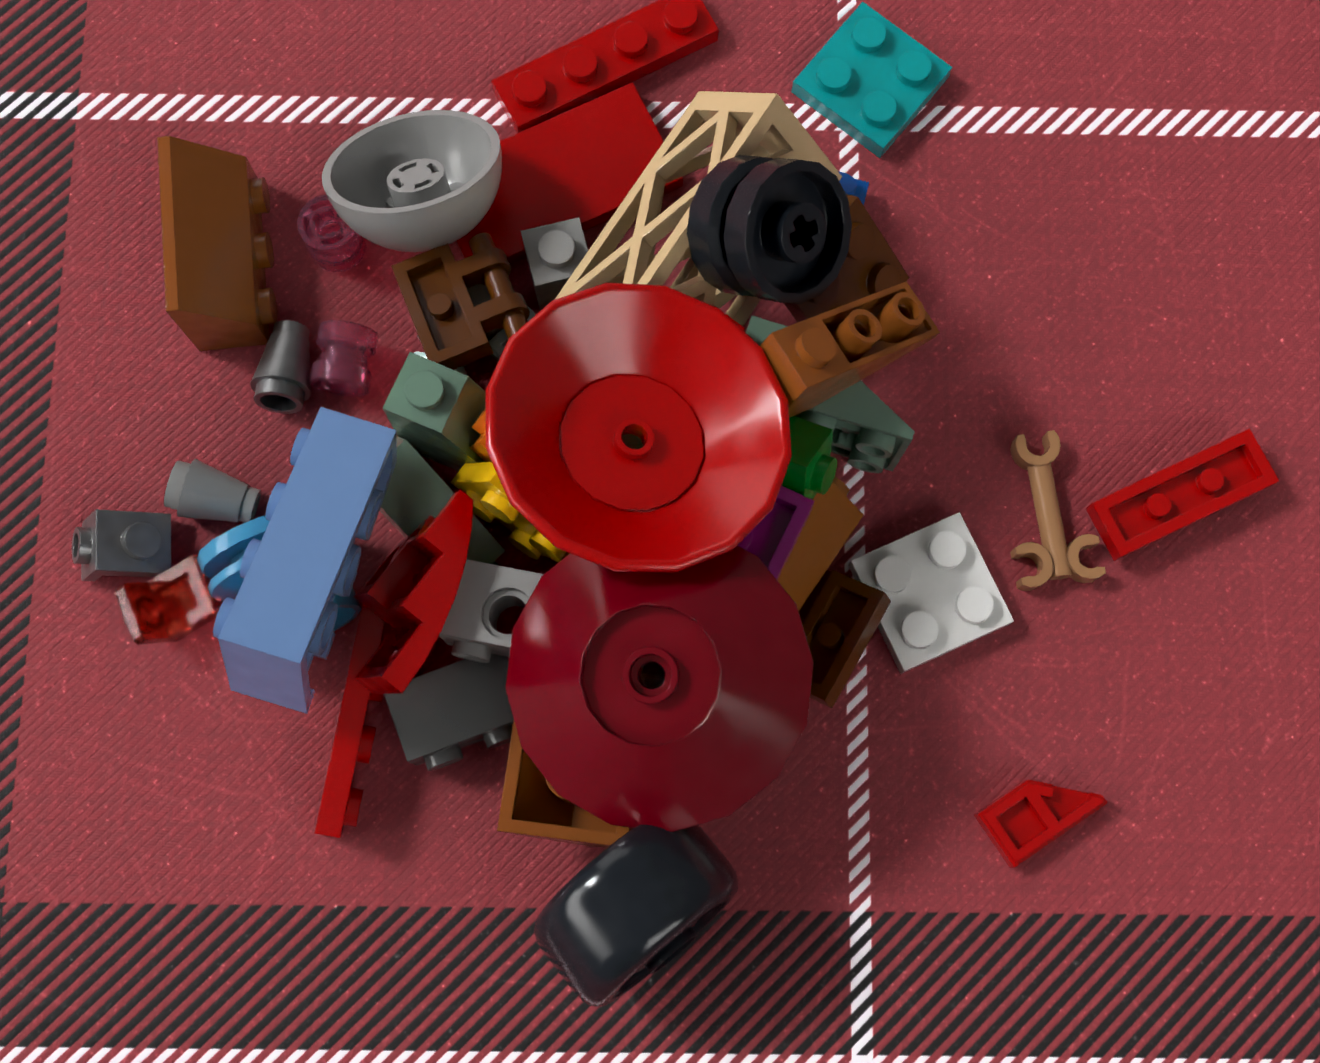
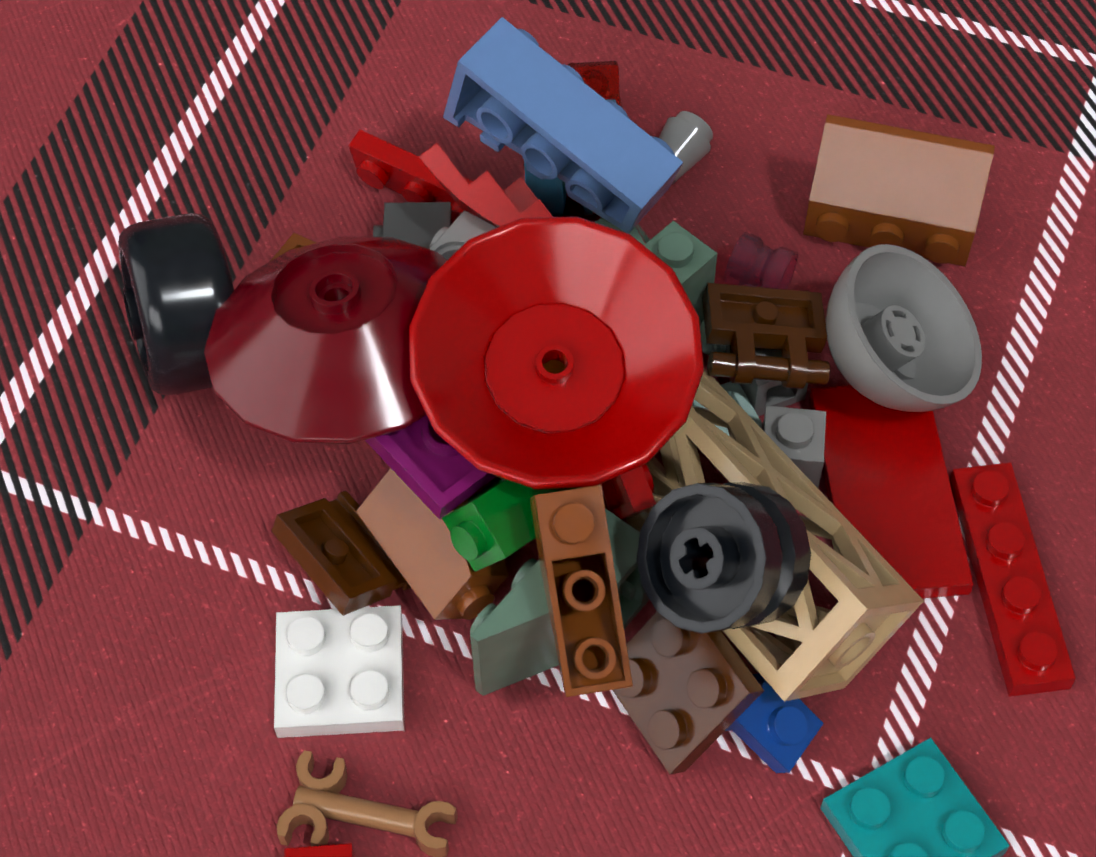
camera: 115 degrees right, 20 degrees down
(122, 544) = (656, 86): flat silver bracket -> none
(284, 369) = (771, 223): flat silver cone -> none
(1033, 817) = (90, 682): red tile -> none

